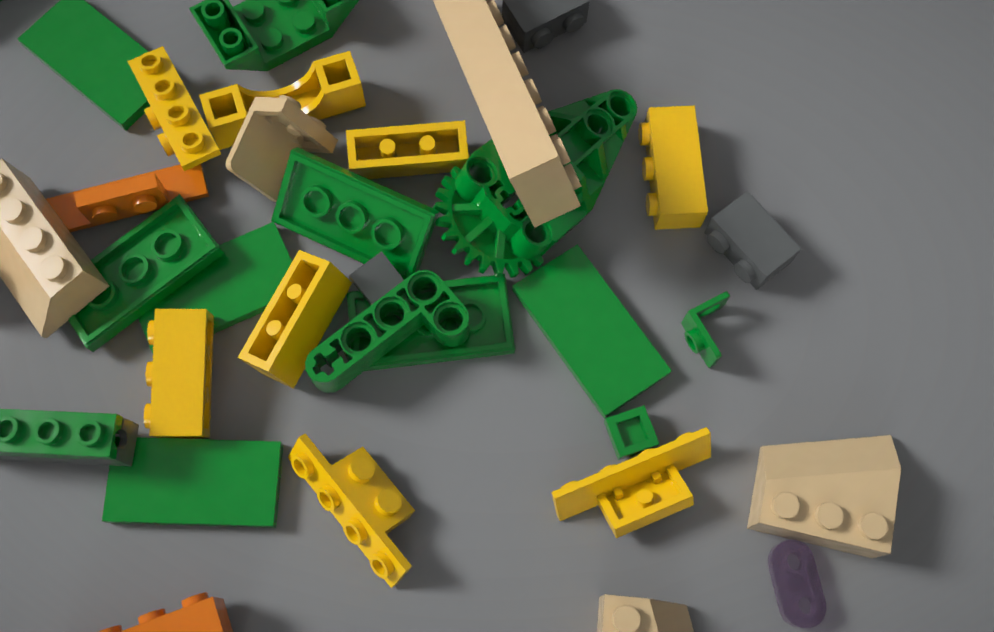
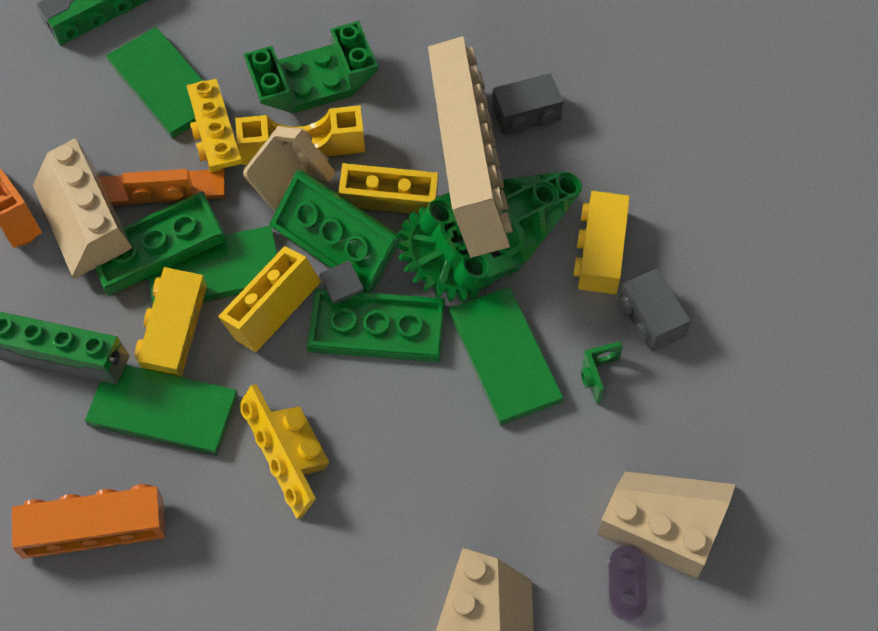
camera: 15 degrees right, 10 degrees down
(386, 337) = (337, 325): green beam -> none
(631, 432) = (518, 438): green plate -> none
(638, 488) = (513, 478): yellow bracket -> none

